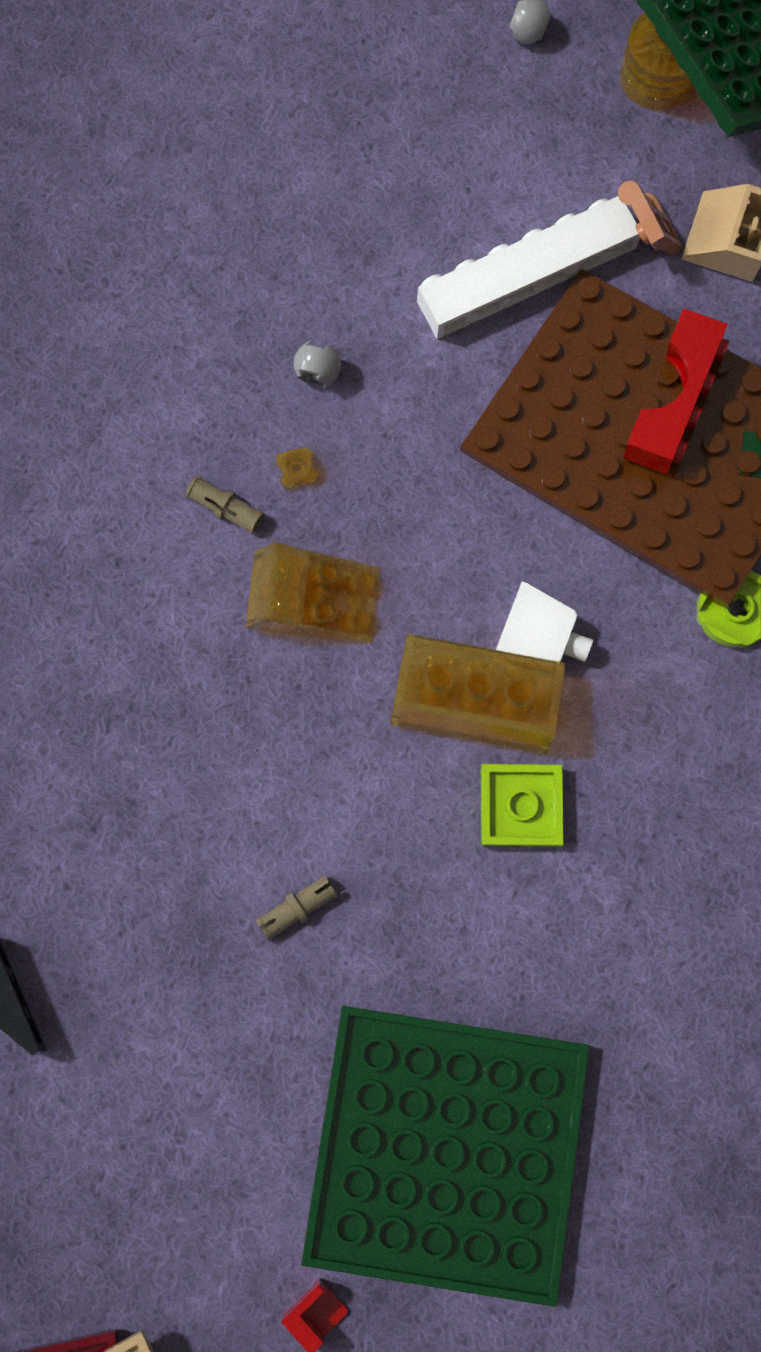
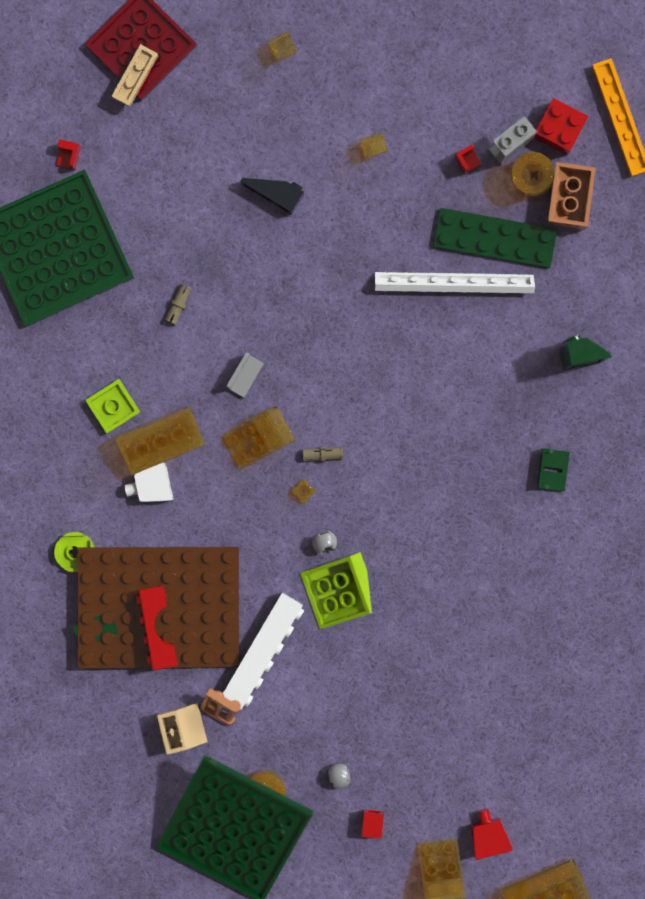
camera: 145 degrees right, 10 degrees up
(264, 712) = (245, 375): none -> light grey panel
(344, 279) = (338, 590): none -> lime slope

